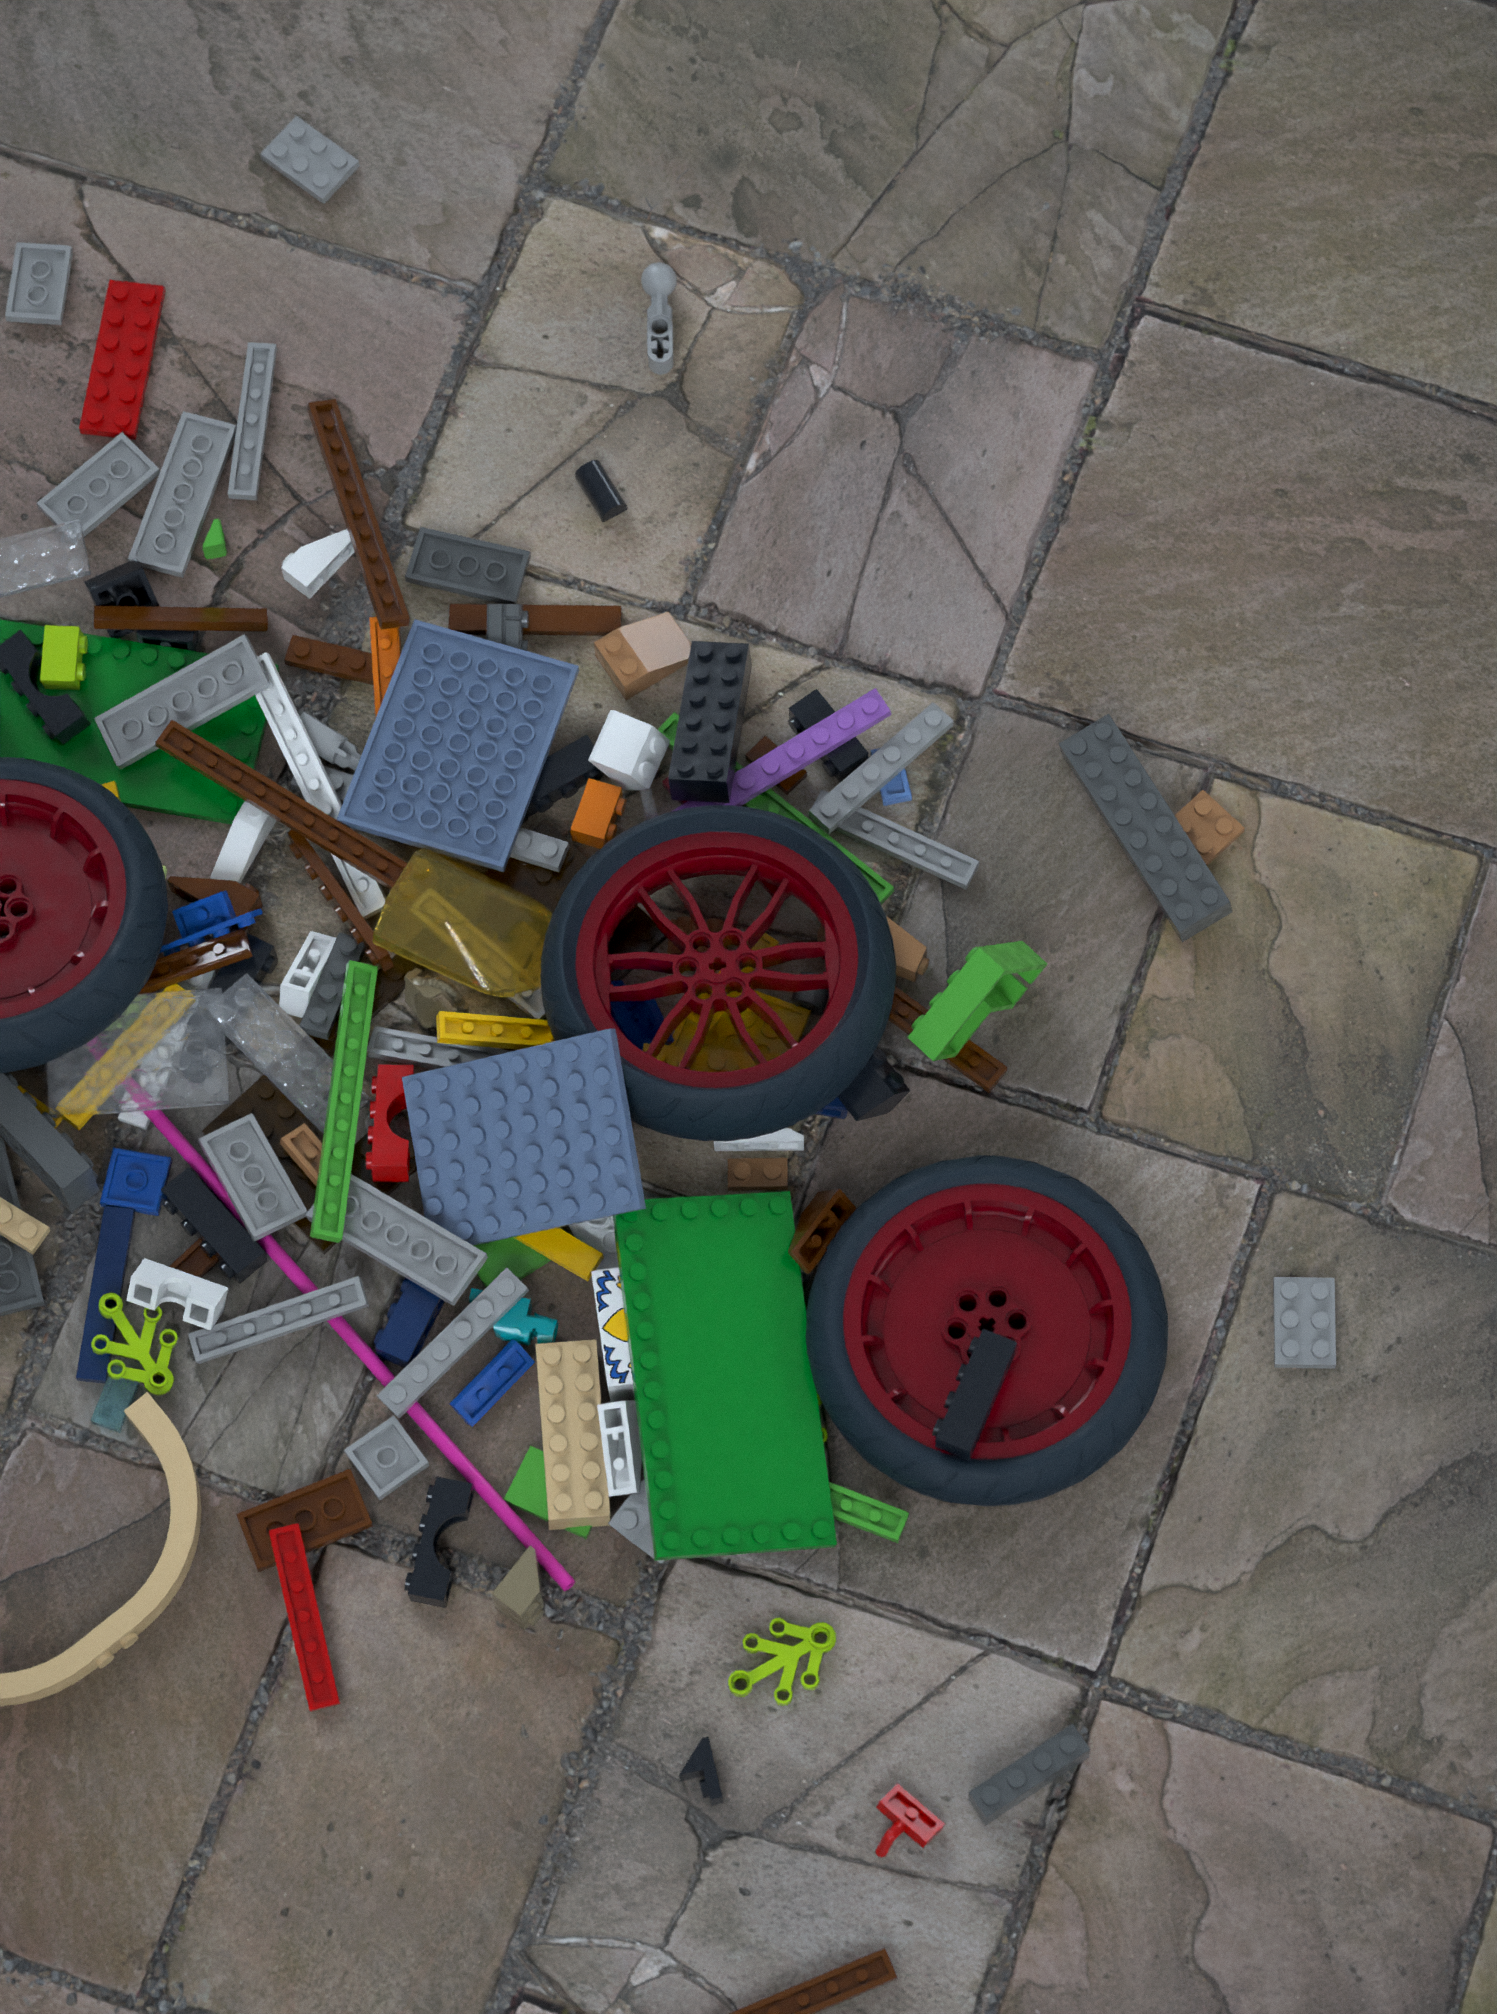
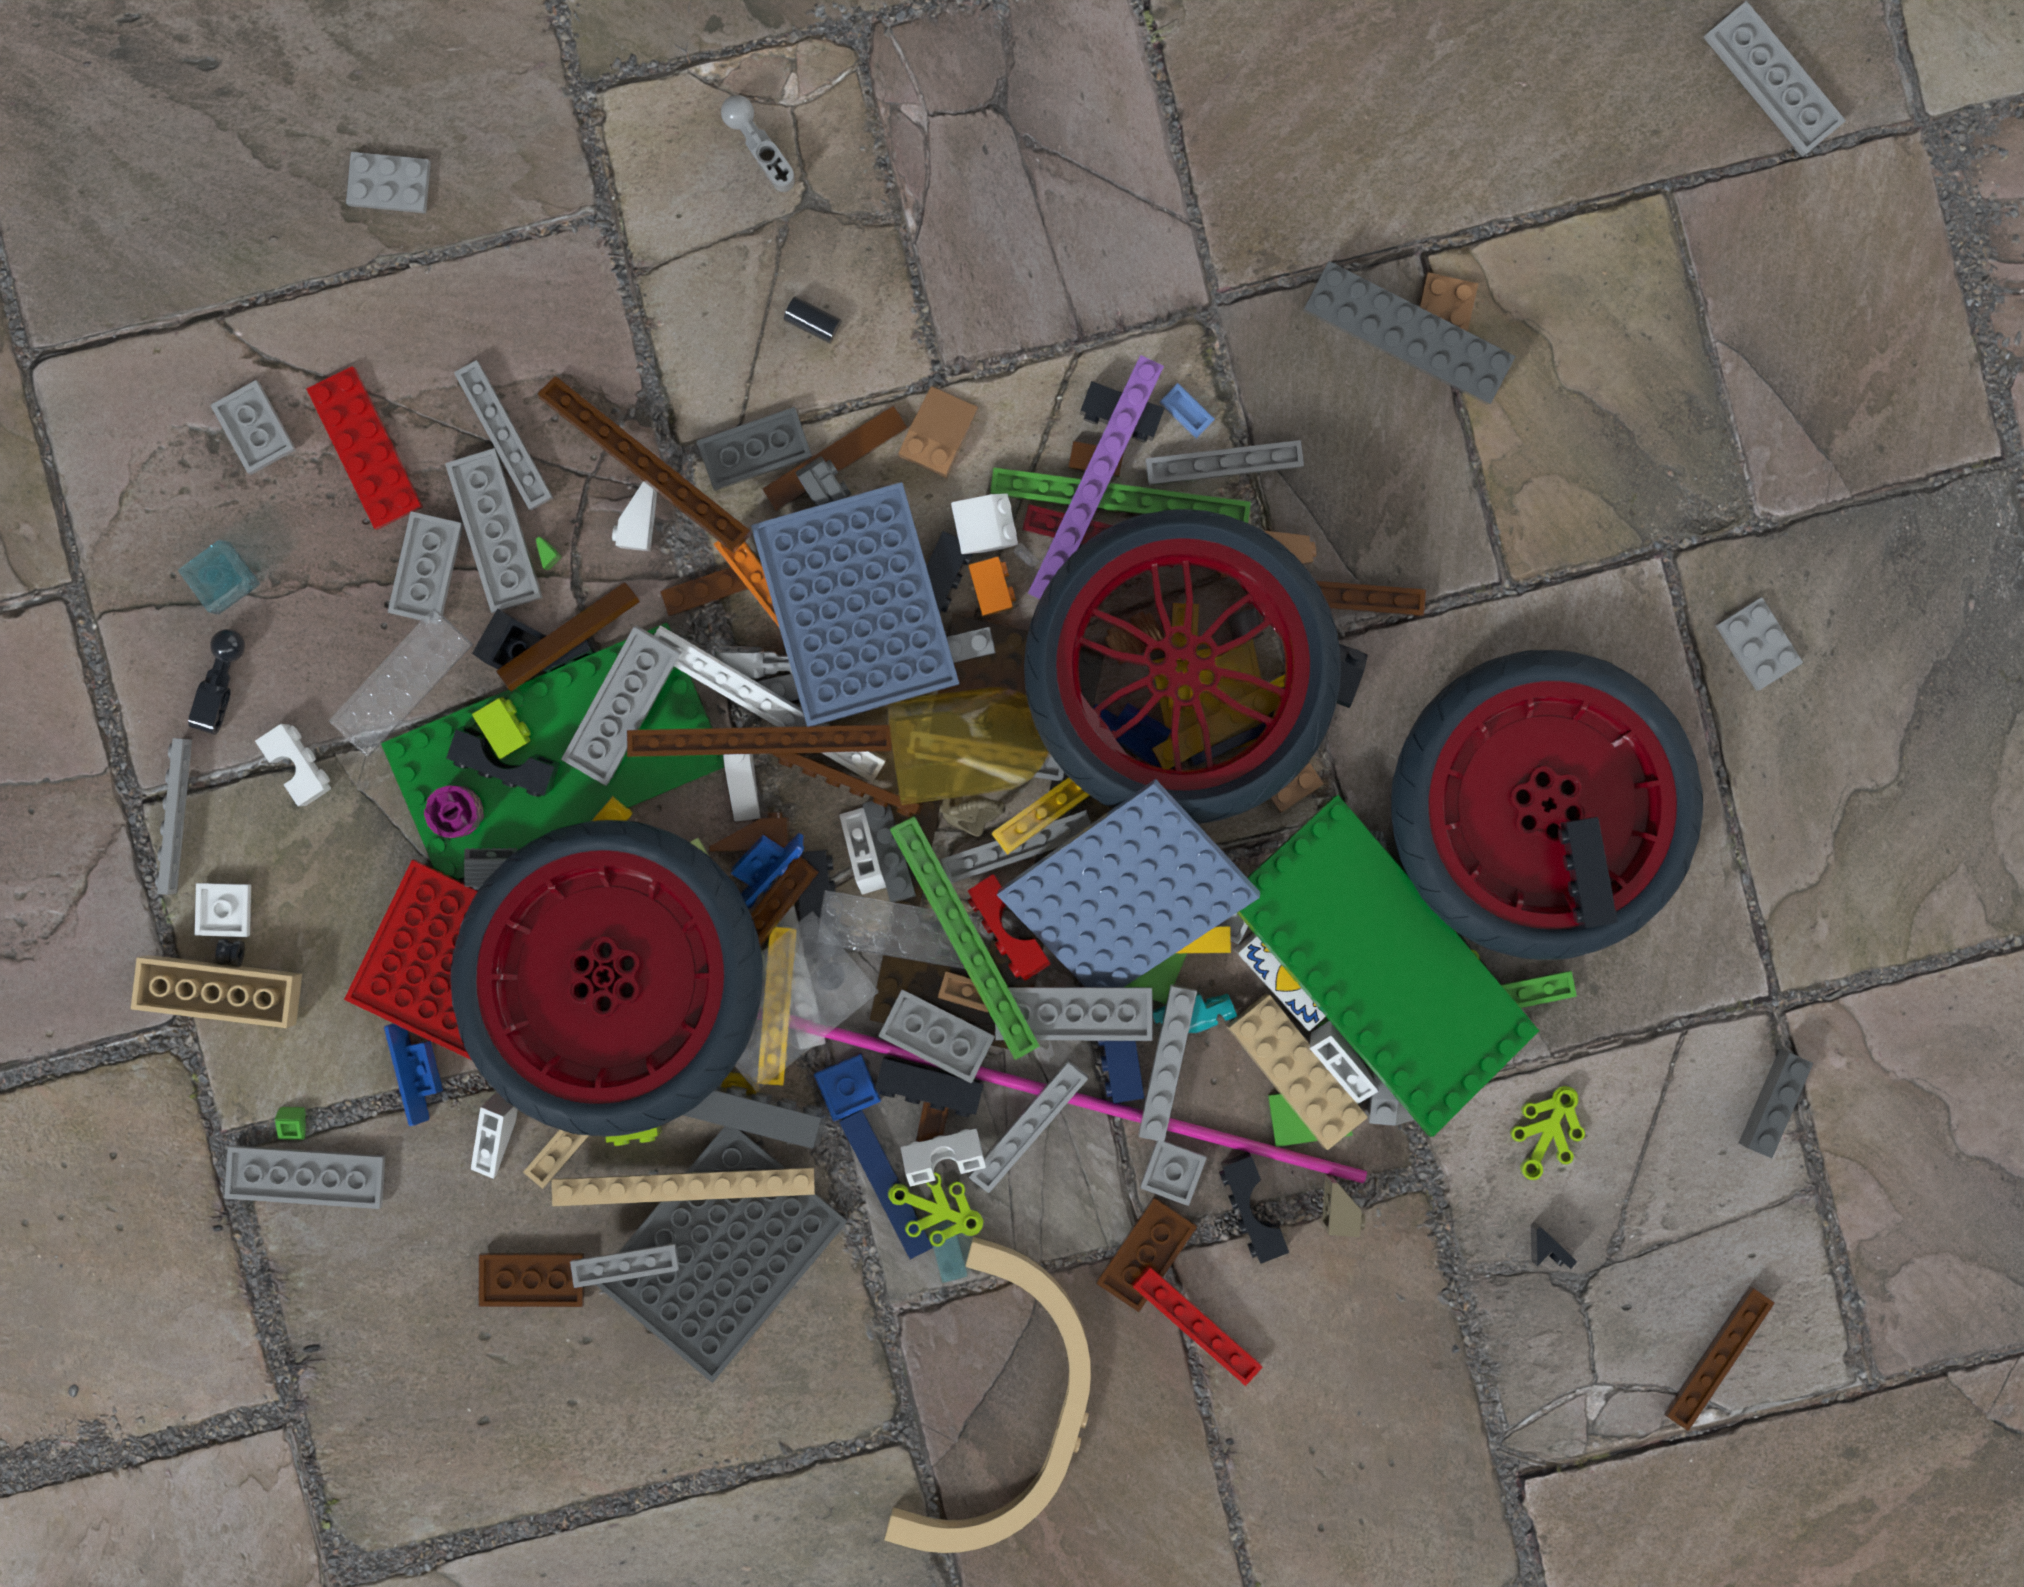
camera: 40 degrees left, 20 degrees up
(492, 1383) = (1211, 1069): blue plate -> none
(710, 722) = (1031, 462): black brick -> none
(818, 1227) = (1373, 804): reddish brown slope -> none
(881, 768) = (1179, 412): light grey plate -> none
(908, 1817) = (1711, 1186): red plate -> none
(972, 994) = (1385, 550): bright green piece -> none

